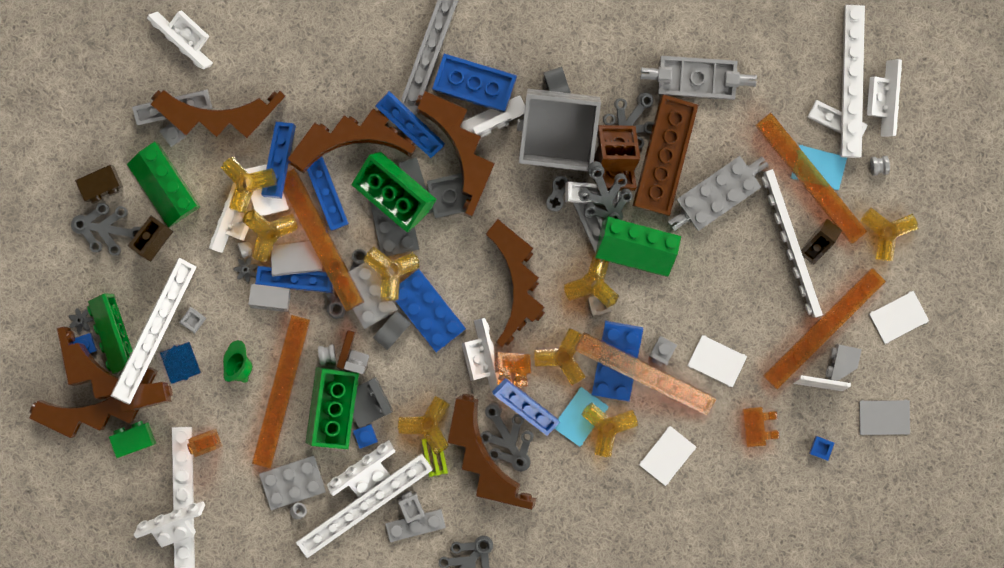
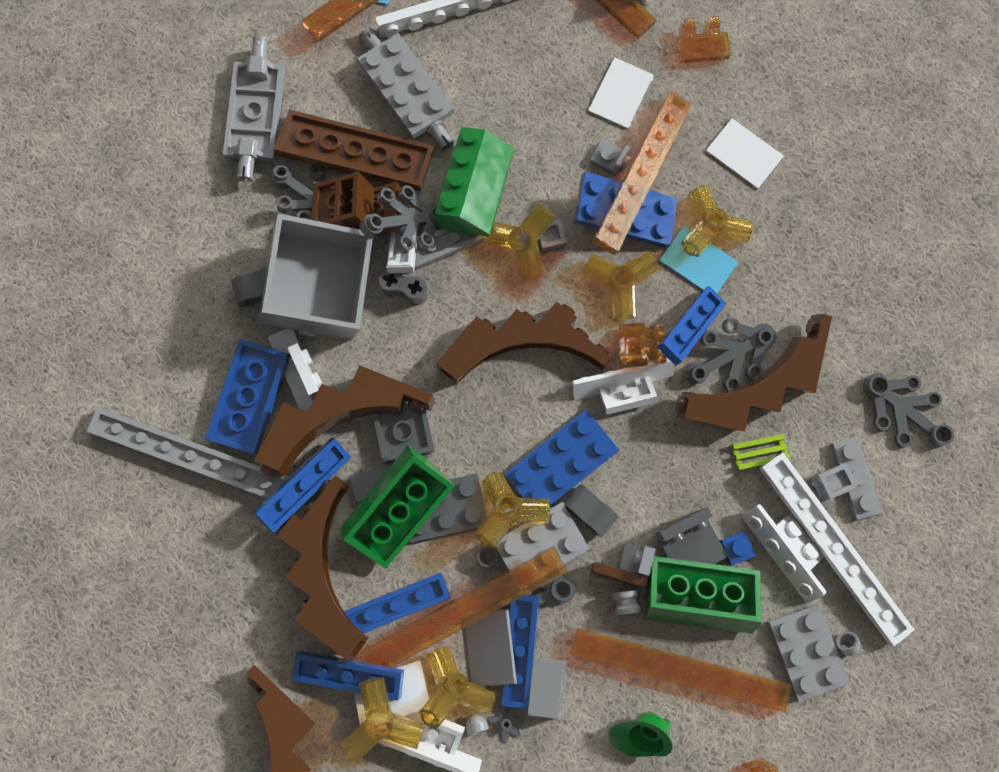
camera: 95 degrees left, 10 degrees down
(415, 425) = (720, 478): clear yellow piece -> none

